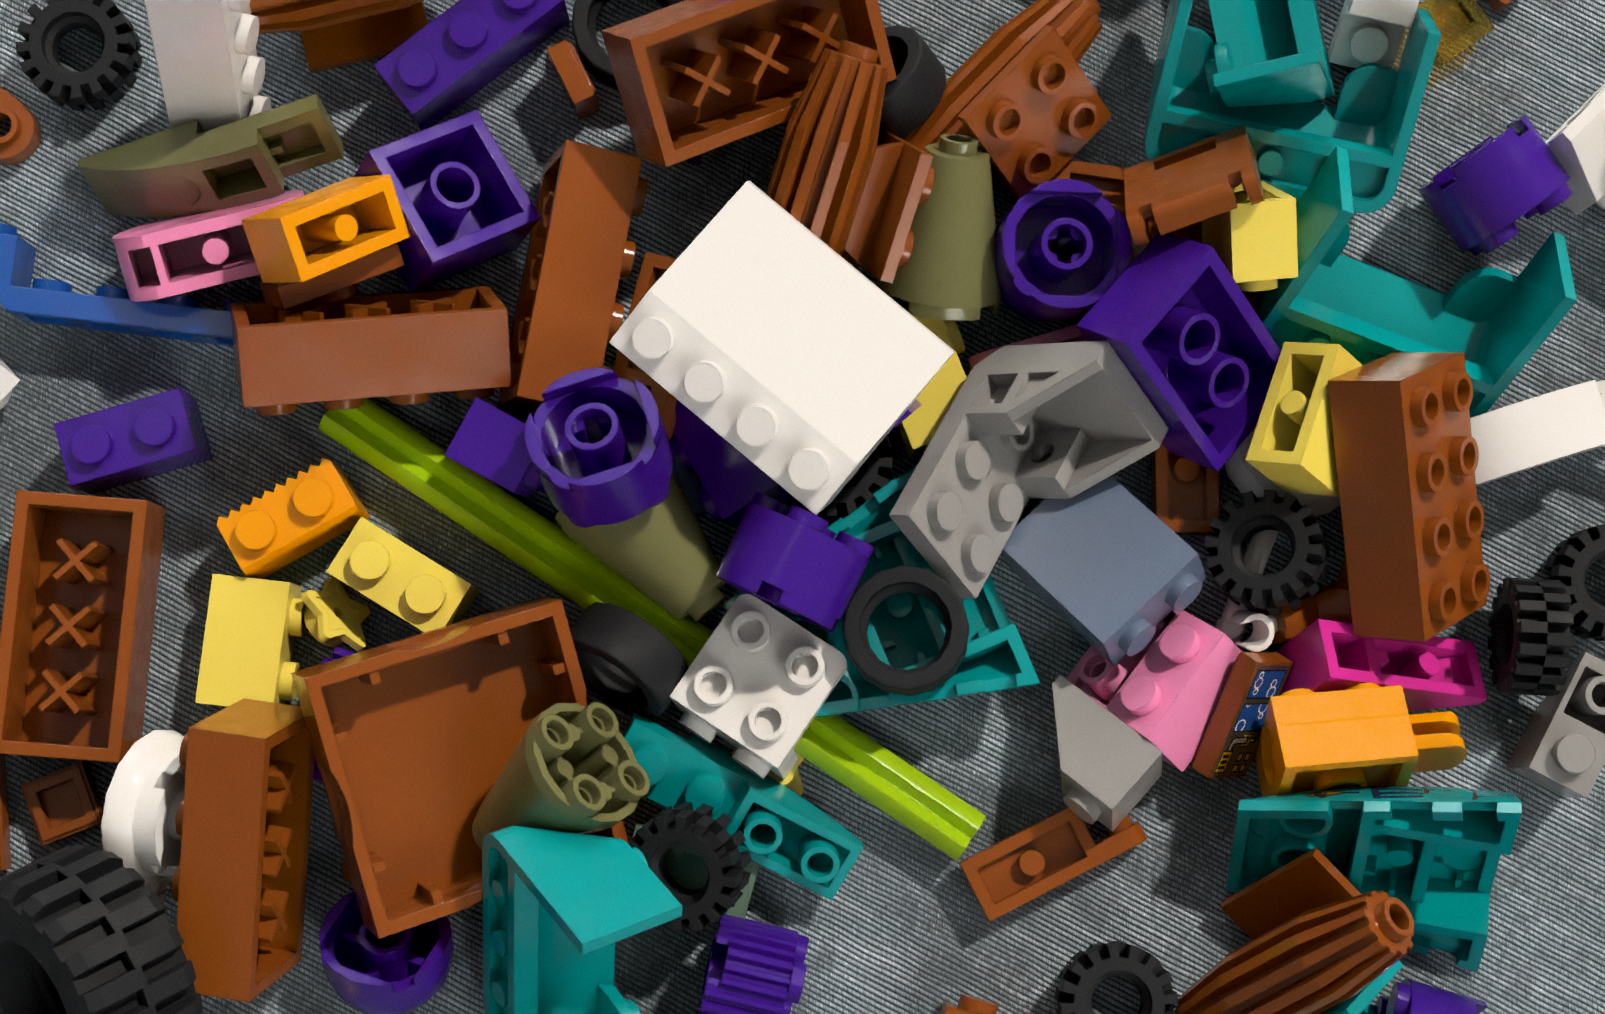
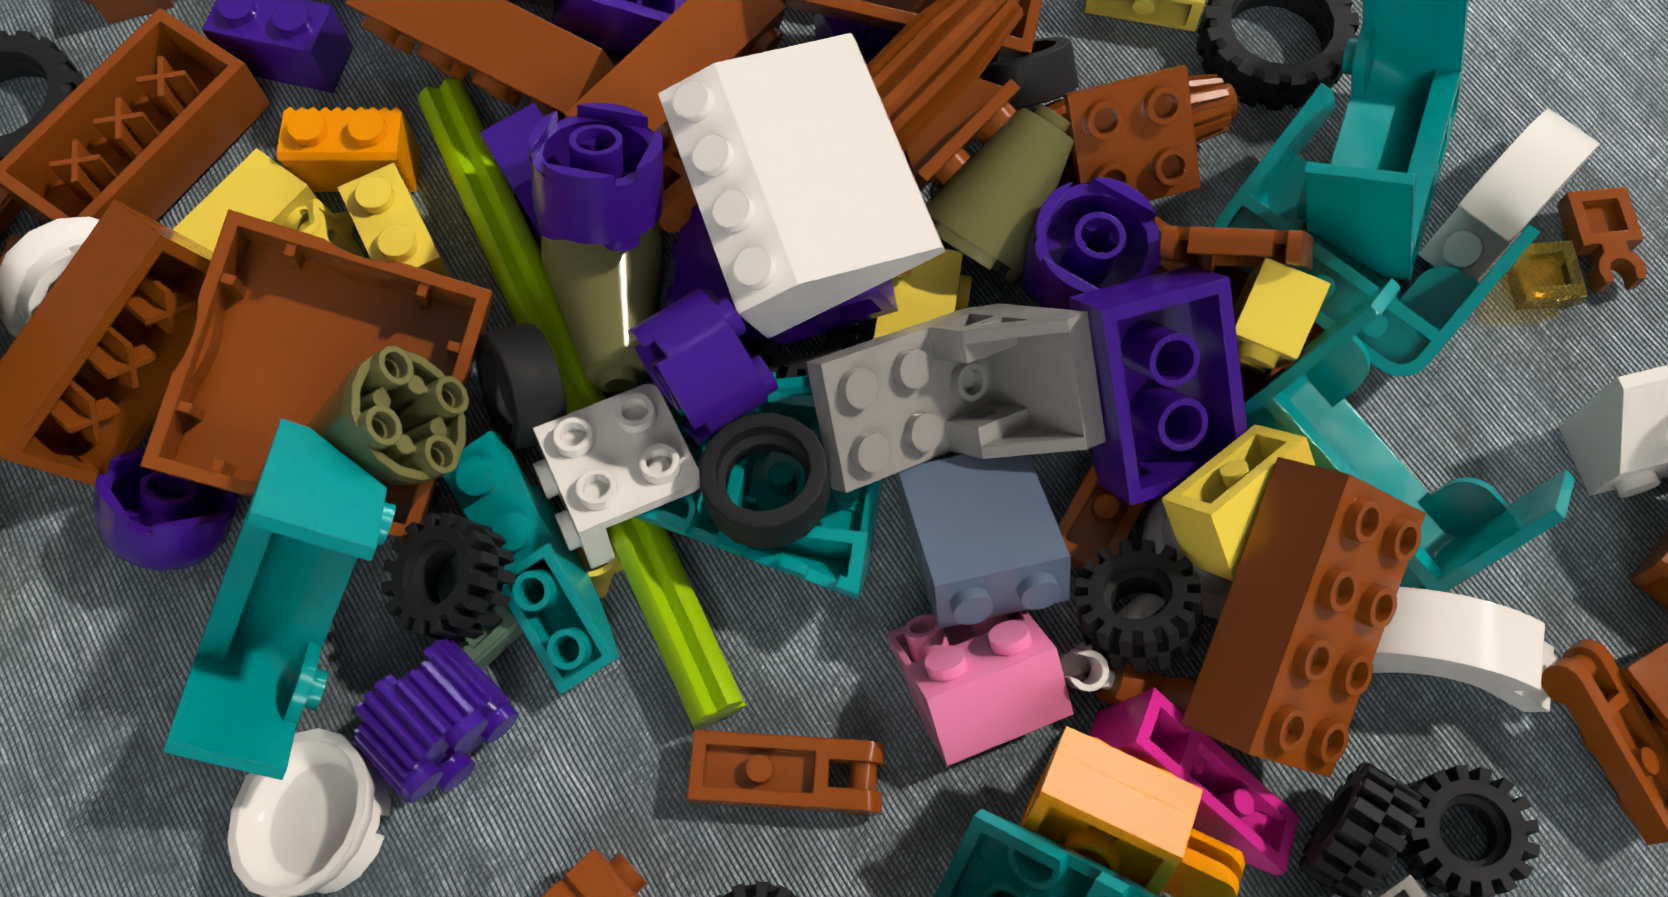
camera: 40 degrees right, 15 degrees down
(1100, 758) = (875, 705): light grey slope -> none
(1240, 714) = (1016, 756): tile -> none
(1495, 186) = (1526, 412): dark purple brick -> none

